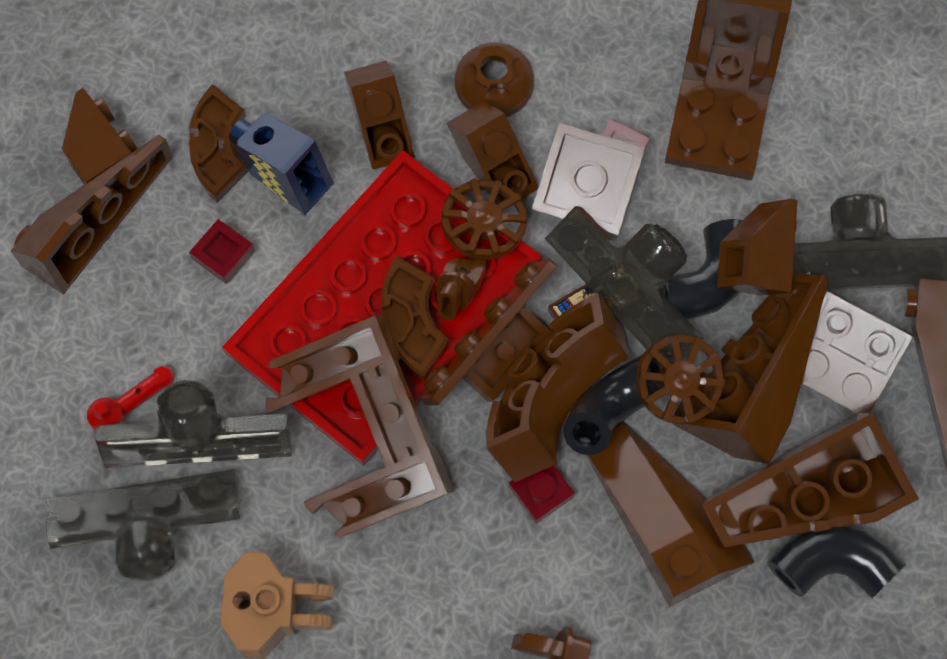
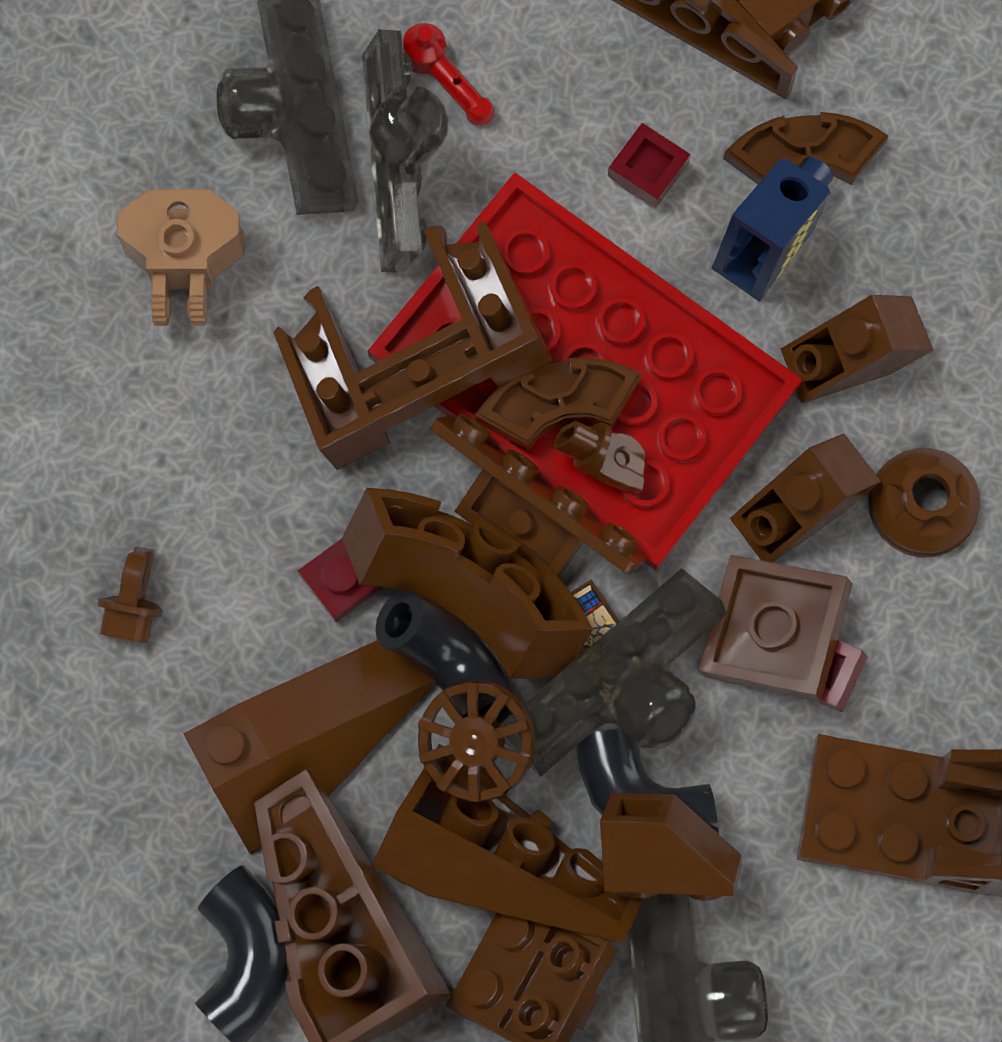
camera: 85 degrees right, 5 degrees up
(484, 219) = (701, 485): reddish brown wheel -> none

